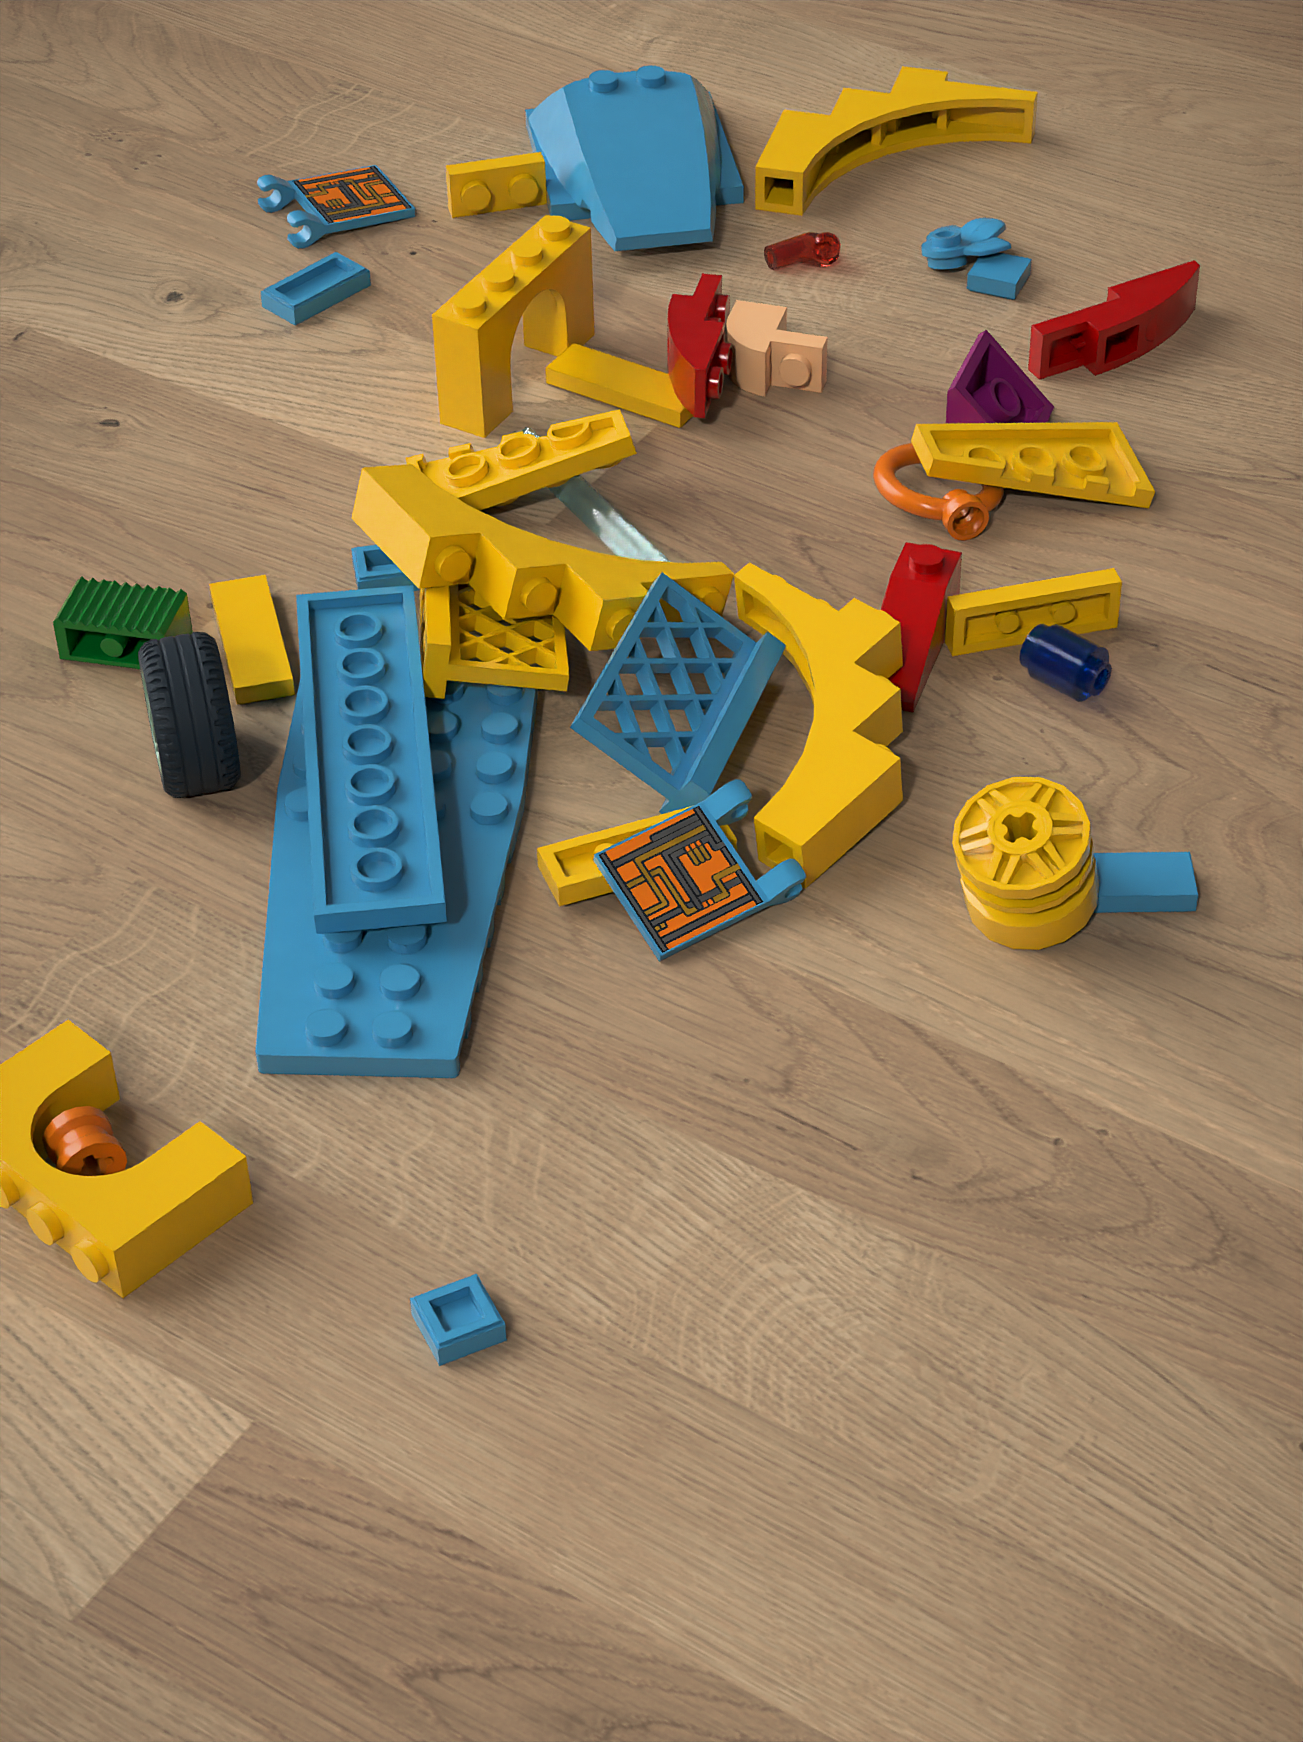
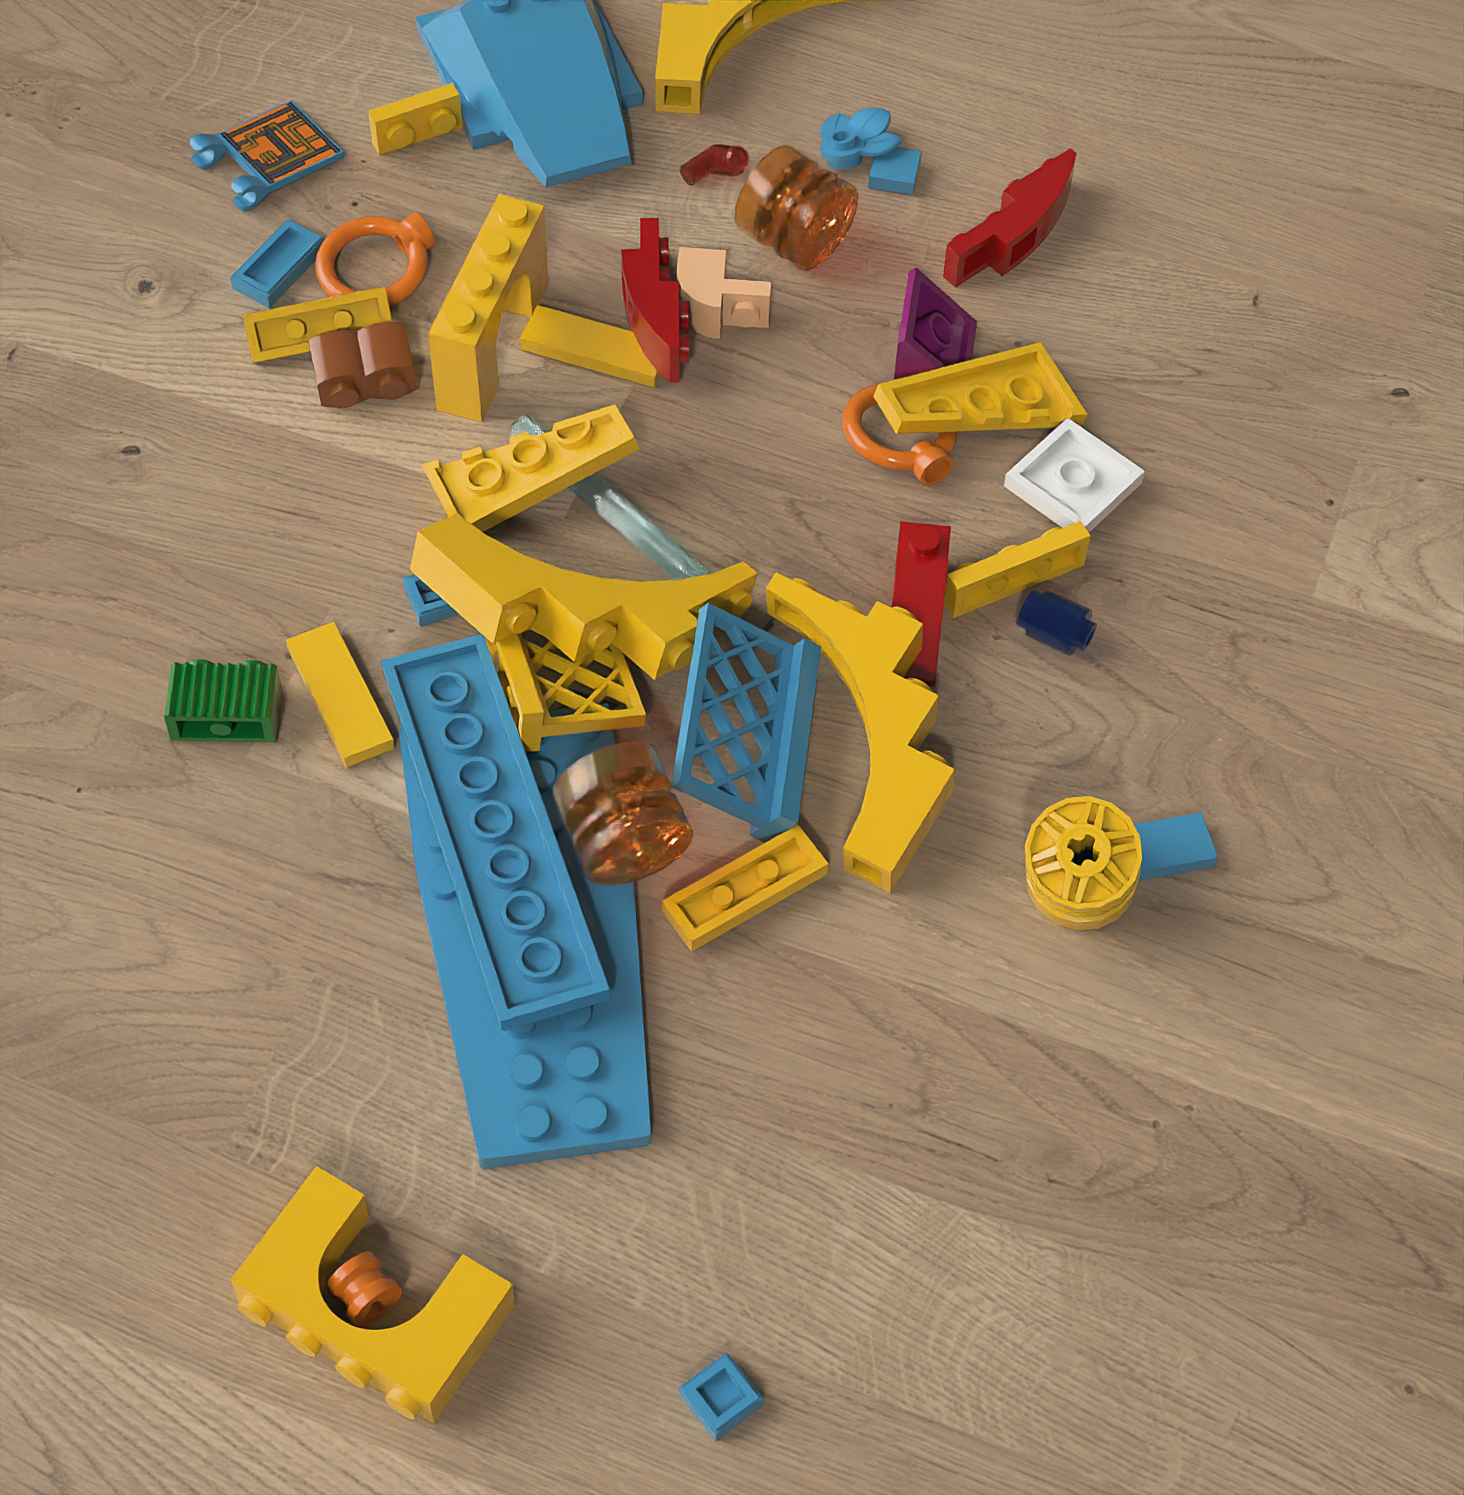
camera: 15 degrees left, 15 degrees up
(189, 714) = (323, 810): black wheel -> none
(336, 334) = (288, 328): none -> yellow plate
(370, 370) = (363, 364): none -> dark orange brick
(454, 275) = (411, 236): none -> orange piece
(507, 743) = (622, 814): none -> clear orange wheel
(688, 879) = (796, 912): flag -> none
(874, 279) = (796, 207): none -> clear orange wheel
(1126, 536) = (1074, 477): none -> white plate

